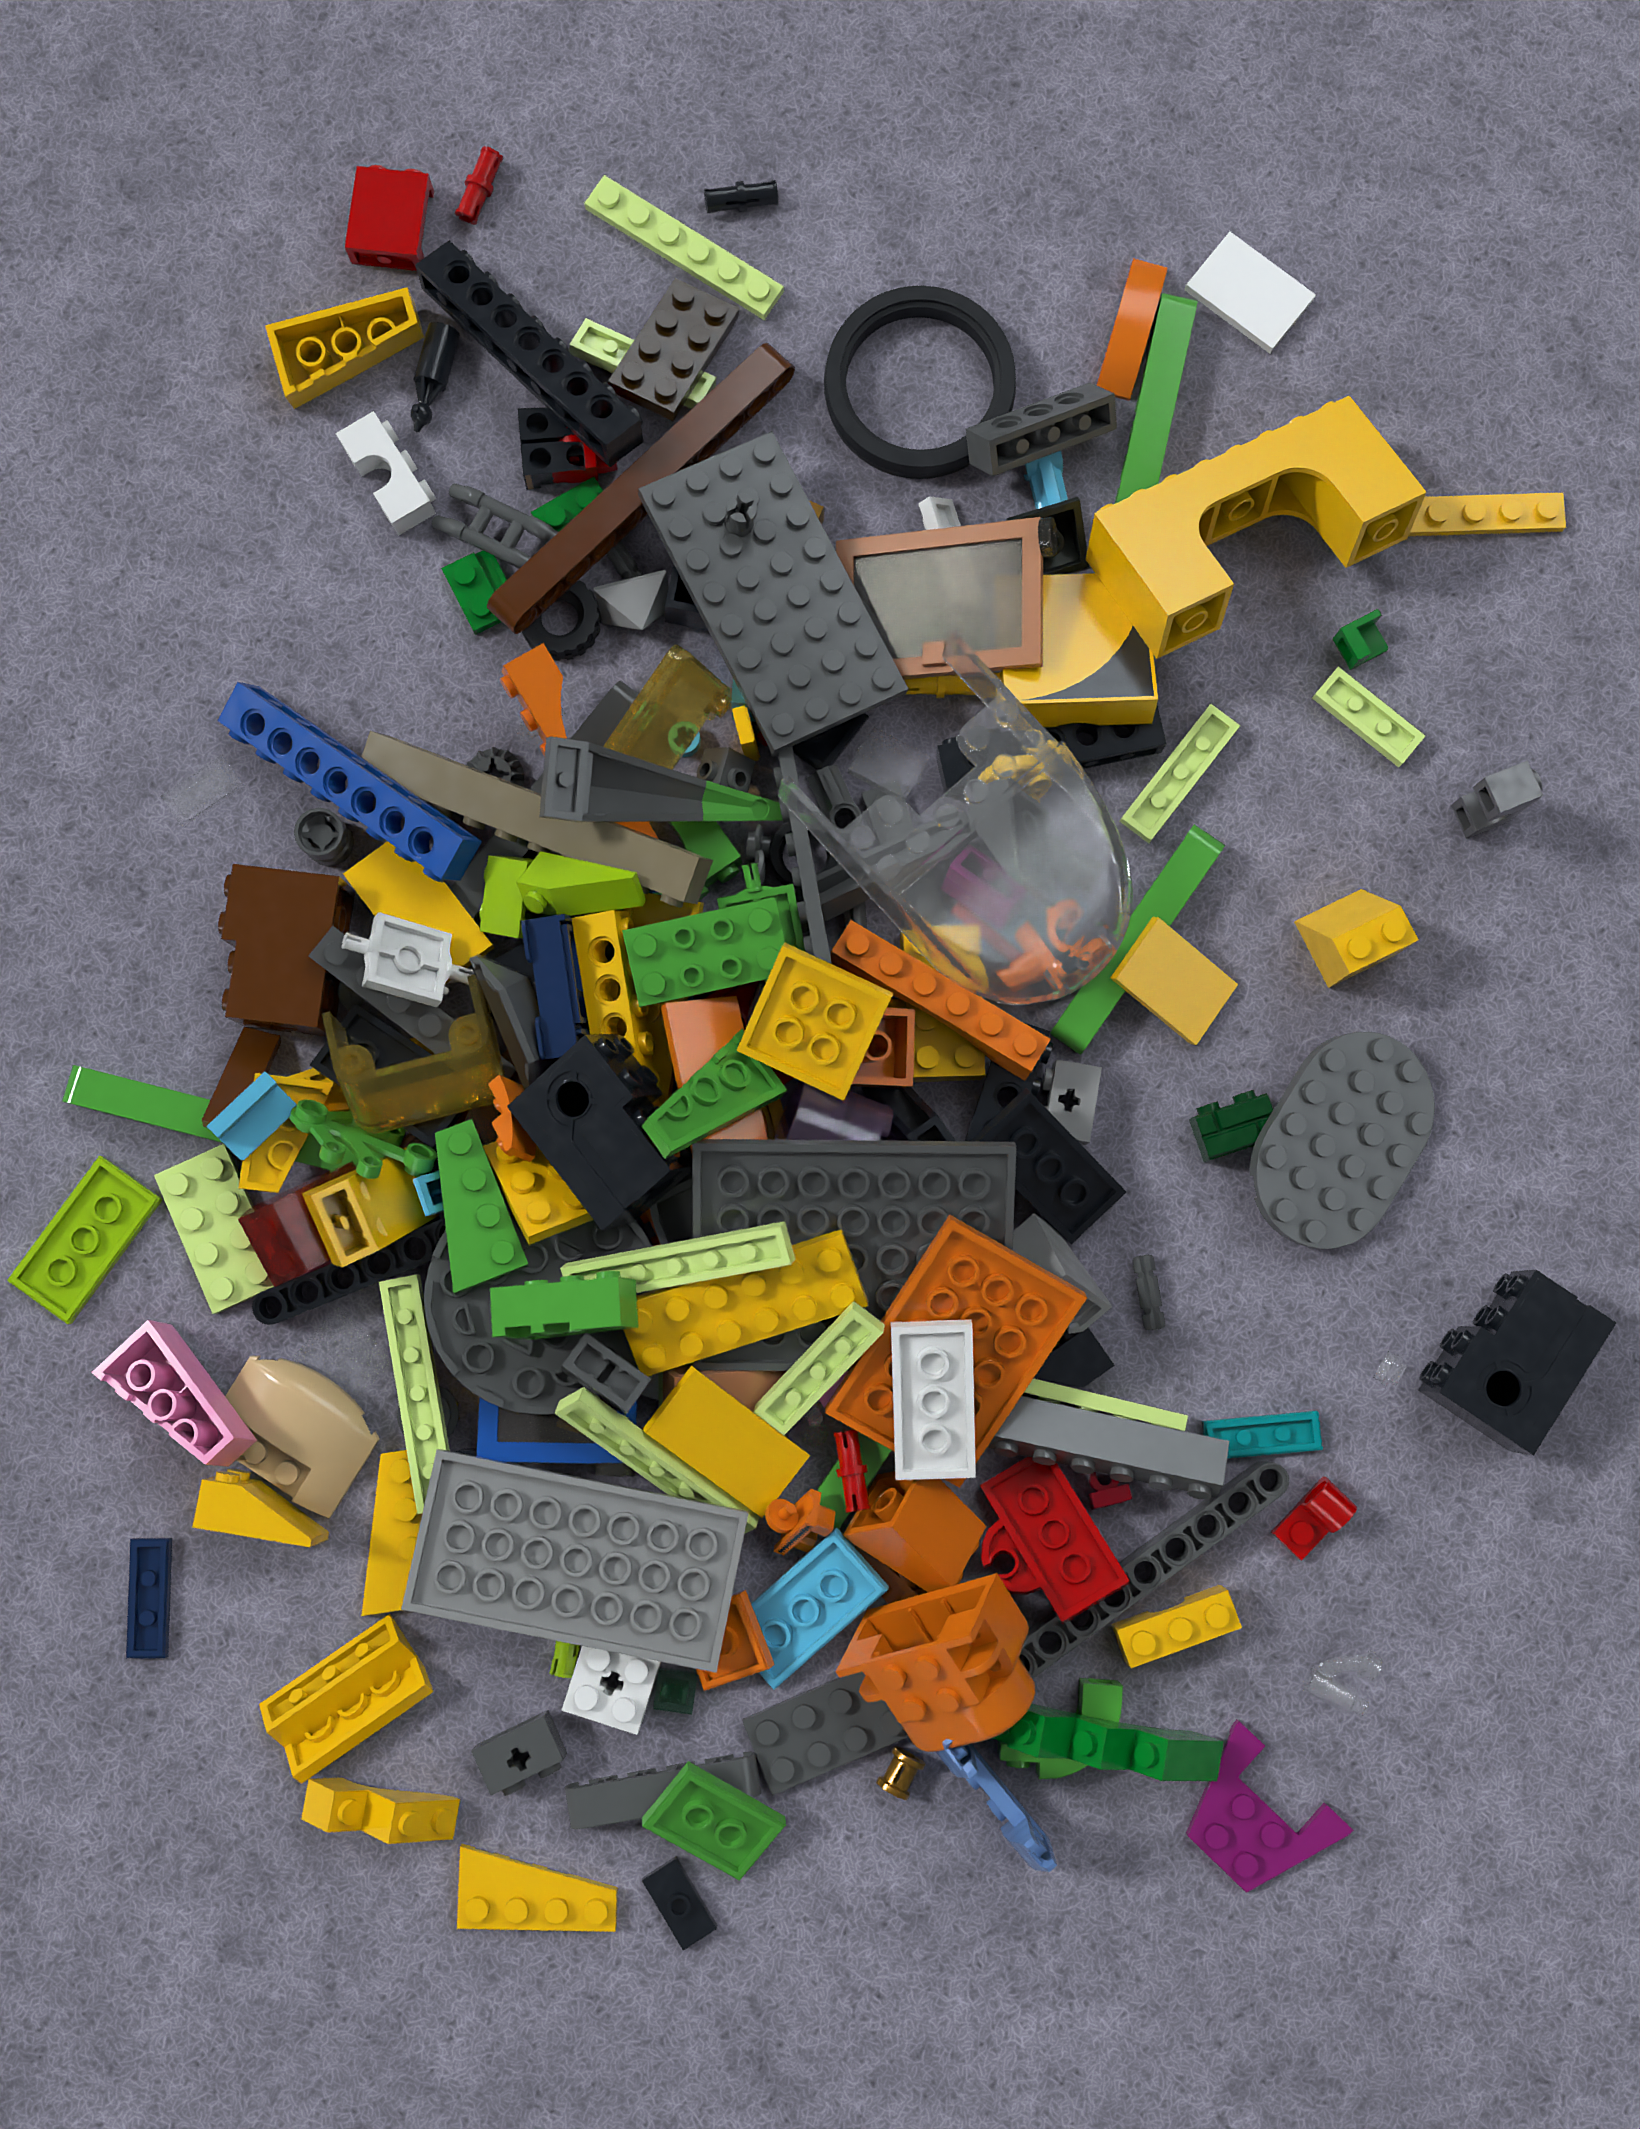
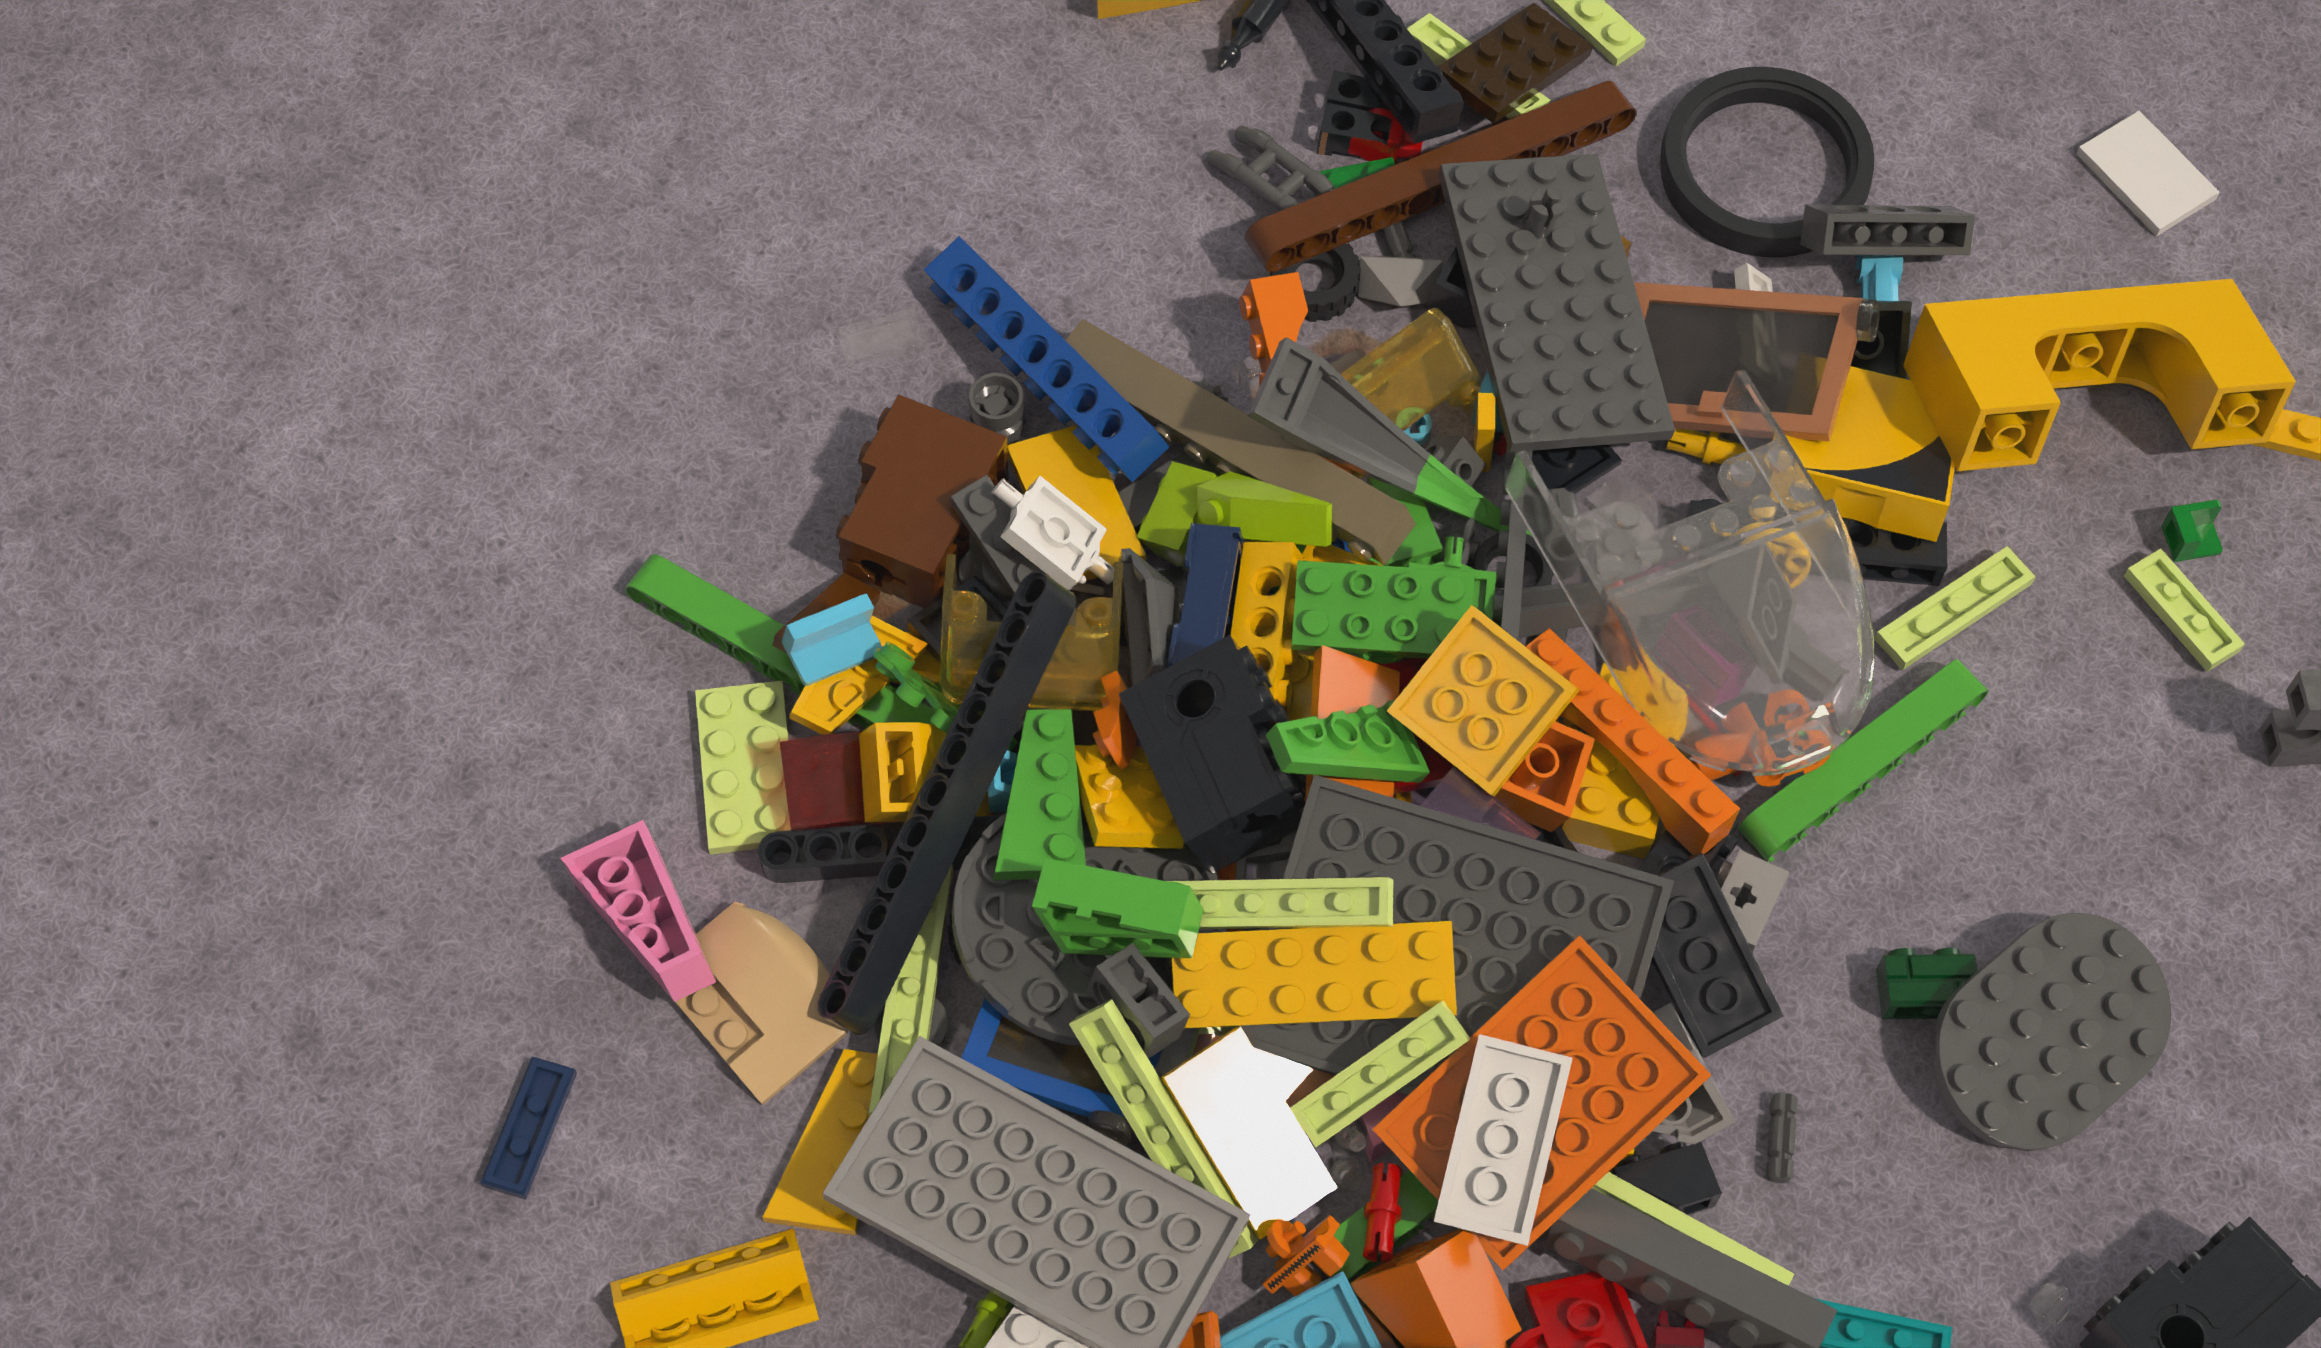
camera: 15 degrees right, 20 degrees down
(84, 1240) = (595, 736): lime tile -> none
(253, 1509) = (676, 1052): yellow slope -> none
(373, 447) = (1171, 69): white arch -> none
(395, 1236) = (946, 804): none -> black beam
(473, 583) = (1227, 222): green plate -> none
(1132, 328) = (2009, 172): orange slope -> none
(1157, 395) = (2028, 226): bright green beam -> none
(1174, 981) = (1896, 810): yellow tile -> none
(1355, 934) = (2118, 826): yellow slope -> none

